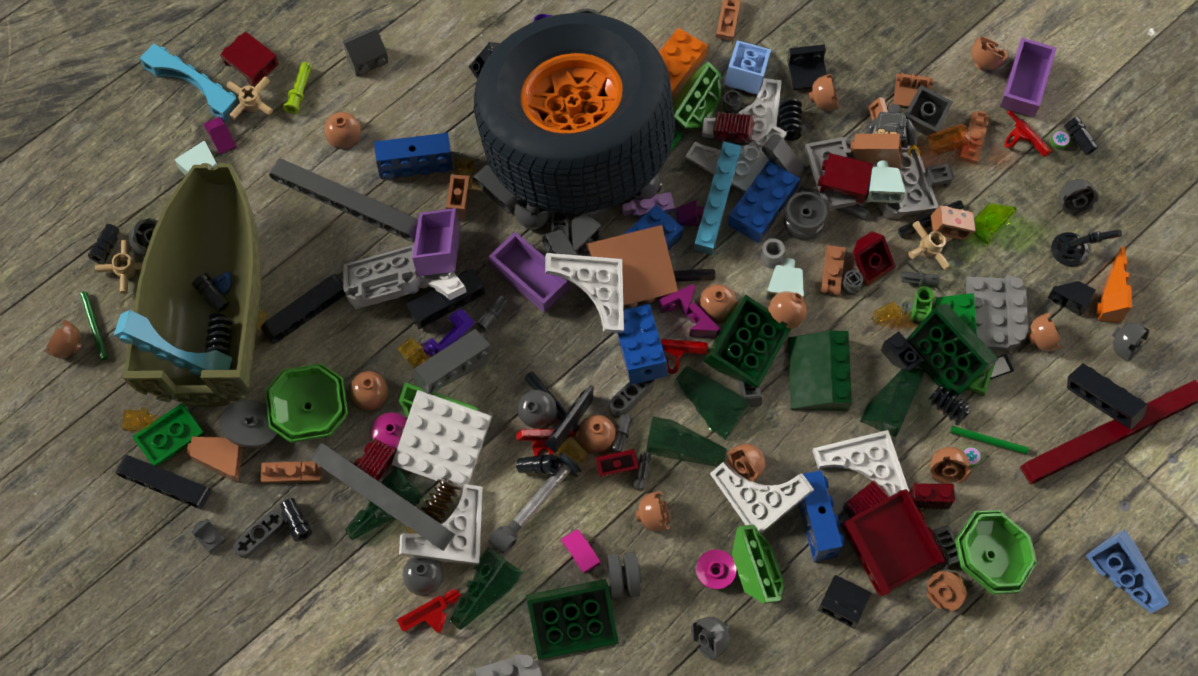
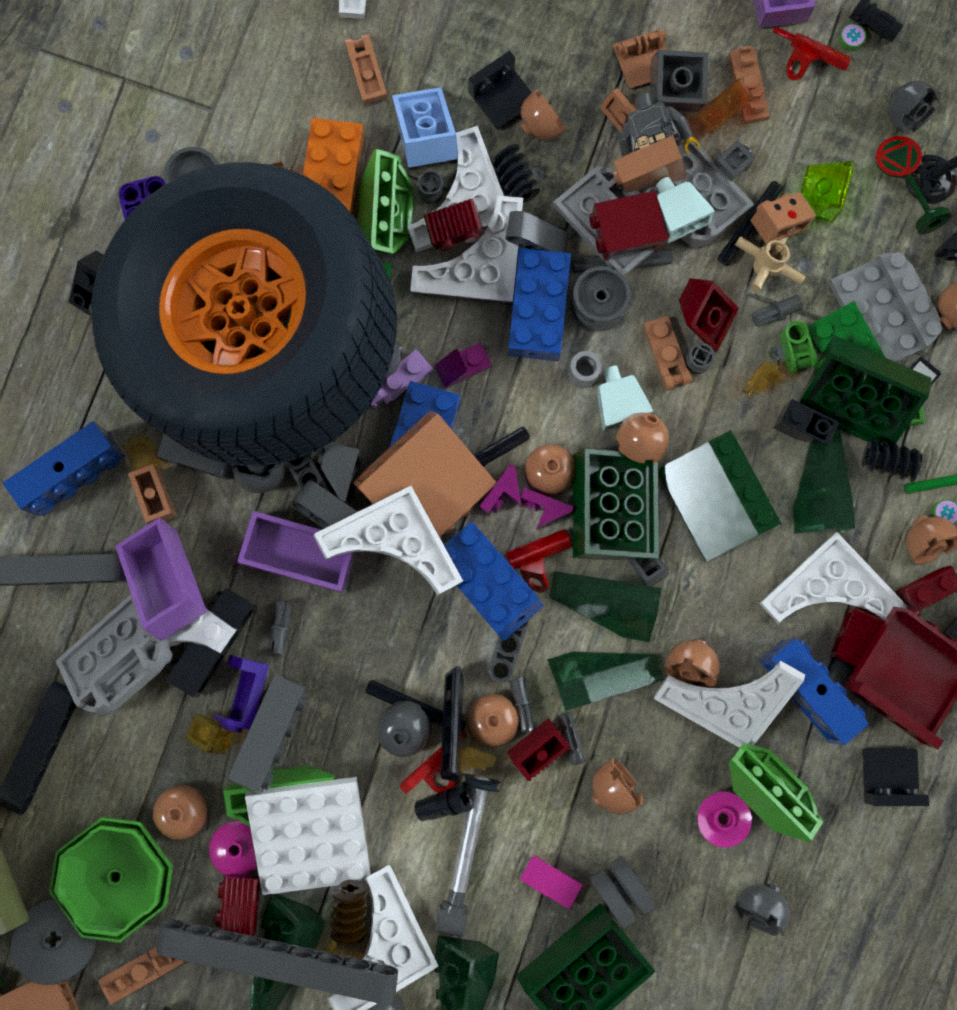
camera: 30 degrees left, 15 degrees up
(717, 198) = (482, 330): medium azure arch -> none
(1054, 226) = (900, 158): none -> dark green piece

